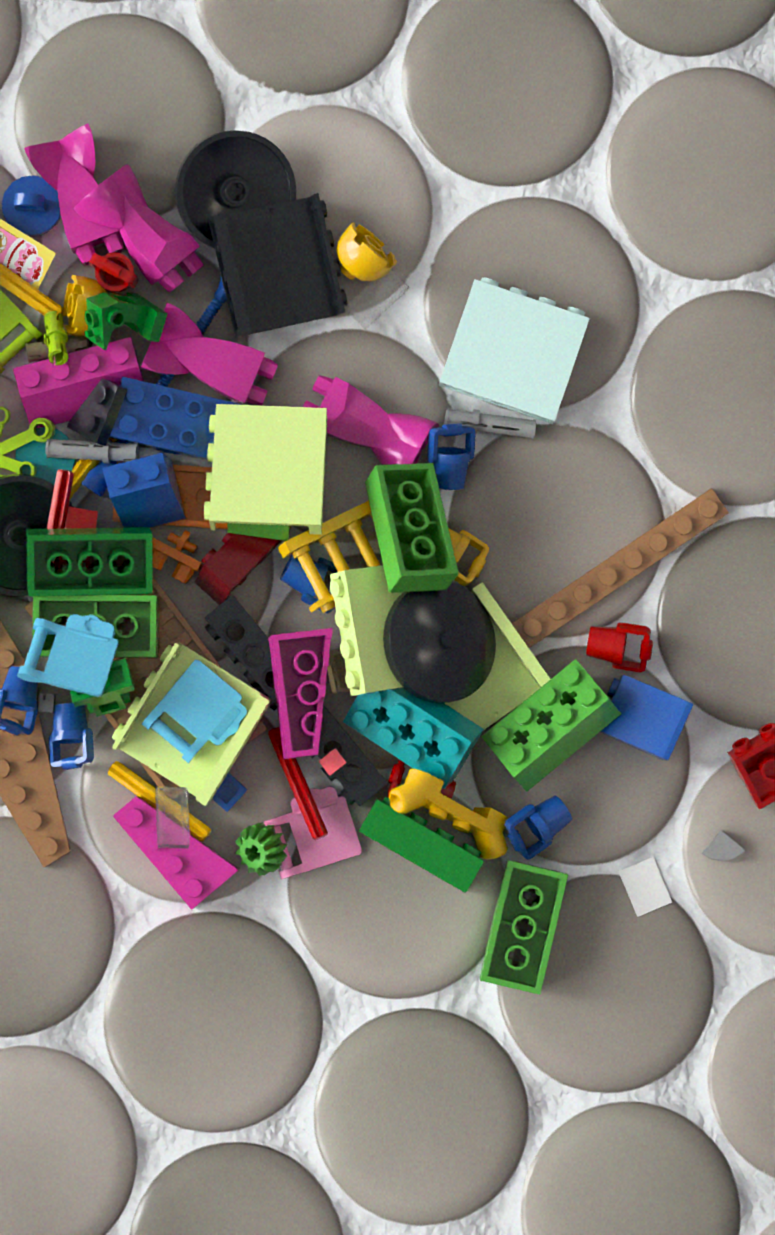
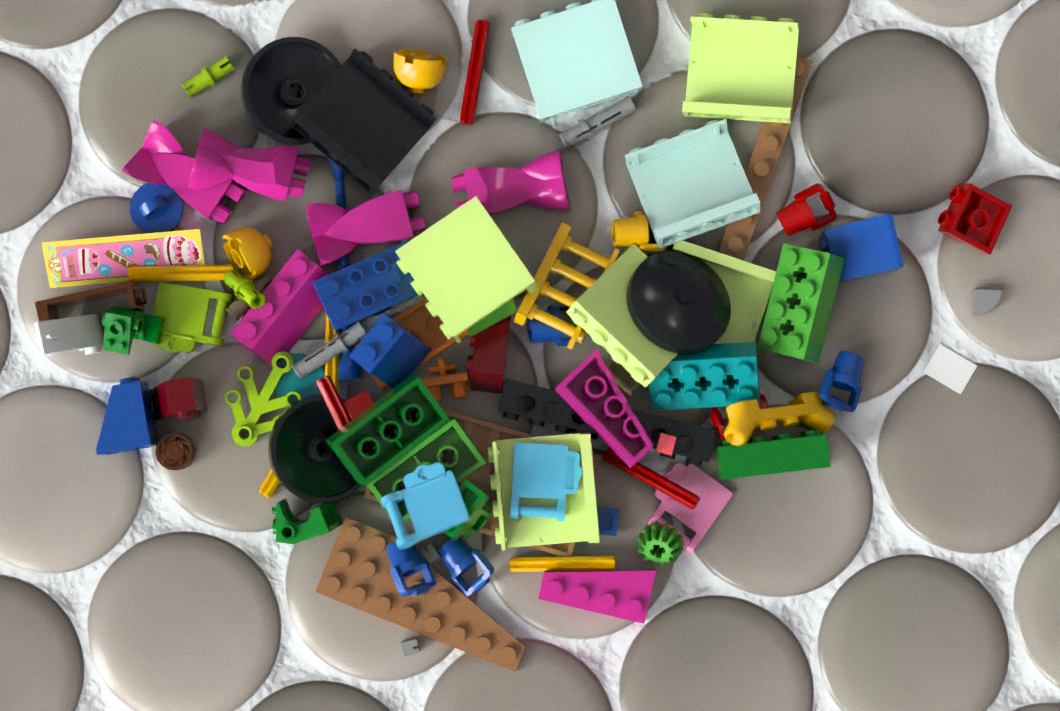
camera: 30 degrees left, 0 degrees up
(99, 412) = (314, 319): black wing -> none
(114, 272) = (251, 211): red piece -> none
(130, 309) = (285, 229): green tile -> none
(167, 120) = (207, 76): none -> lime pin
(172, 817) = (582, 568): clear tile -> none
(411, 527) = (599, 236): bright green brick -> none
(412, 295) = (474, 72): none -> red axle
(451, 462) = (589, 171): blue piece -> none
(505, 937) = (903, 468): bright green brick -> none
(534, 542) = (691, 183): none -> light aqua panel
(657, 472) = (741, 68): none -> yellowish green panel

